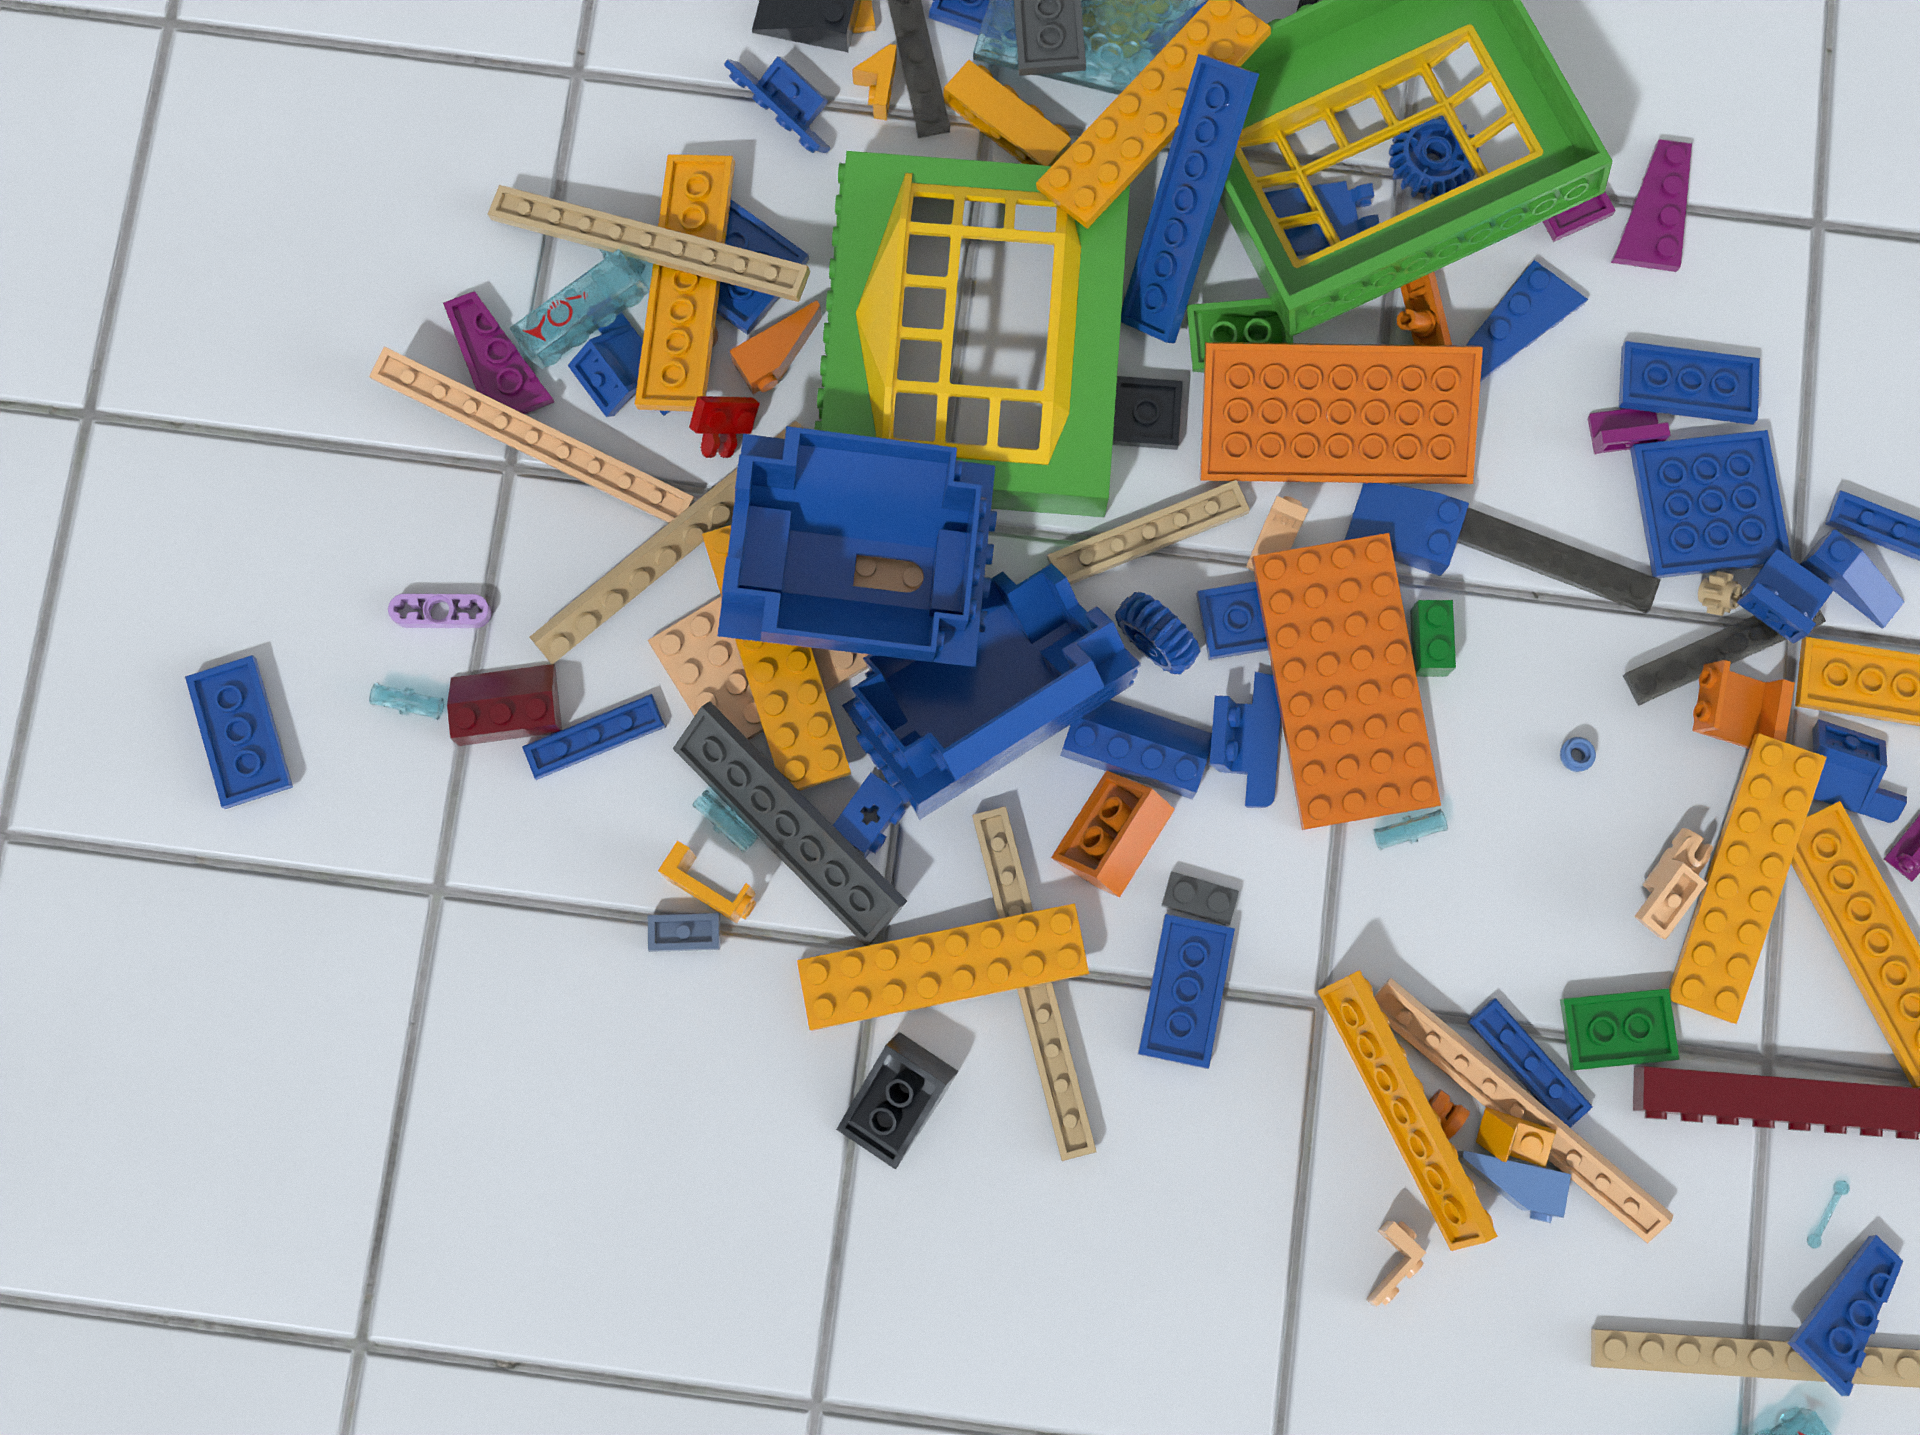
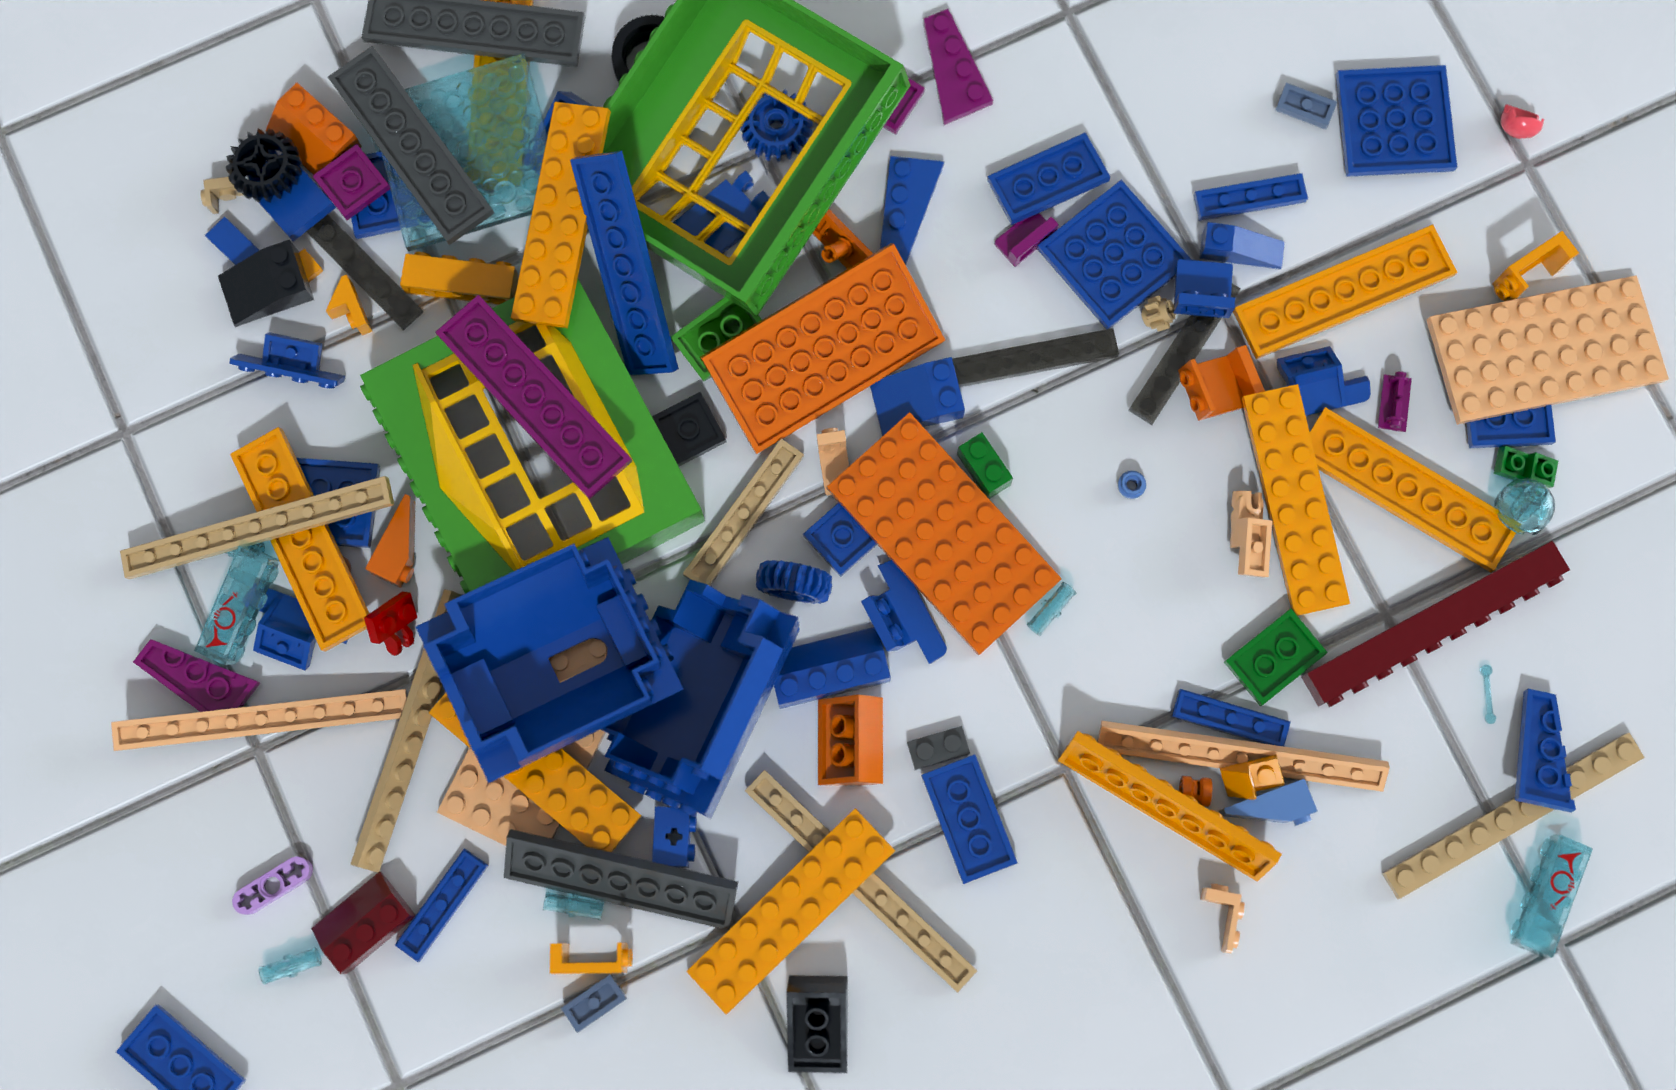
camera: 30 degrees left, 0 degrees up
(1009, 276) = (534, 397): none -> magenta plate

